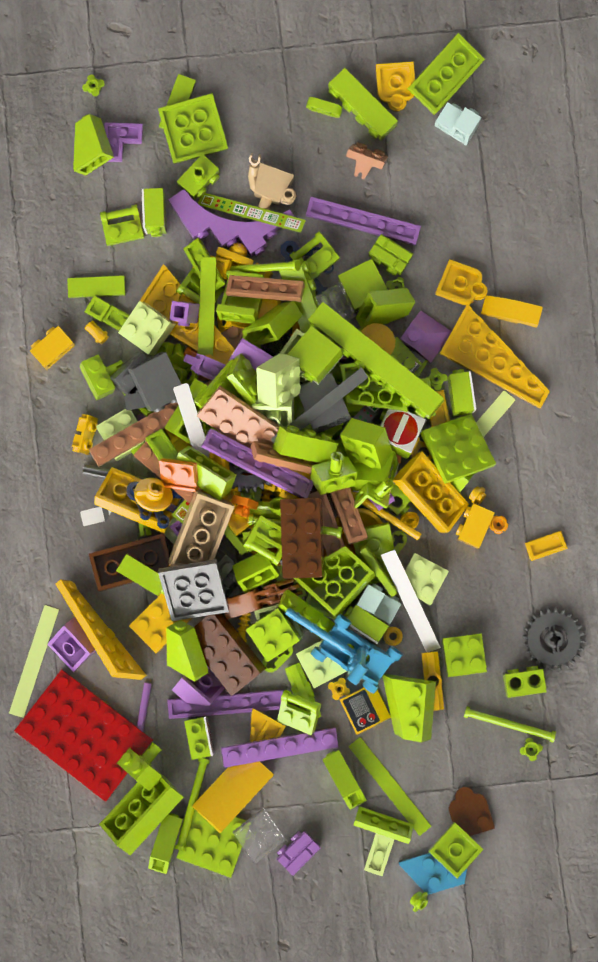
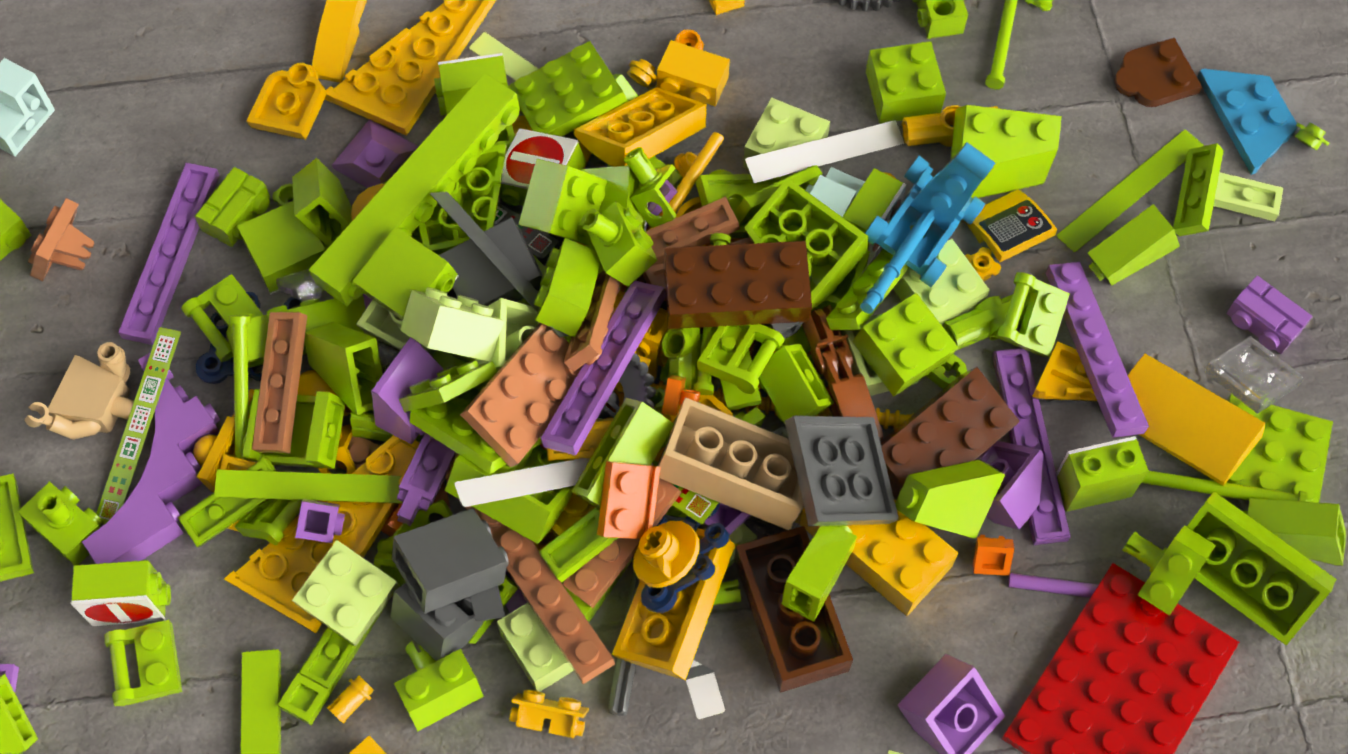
camera: 95 degrees left, 20 degrees down
(111, 651) = (934, 655): yellow wing -> none
(158, 674) = (993, 556): none -> orange tile
(455, 850) = (1222, 80): lime plate -> none

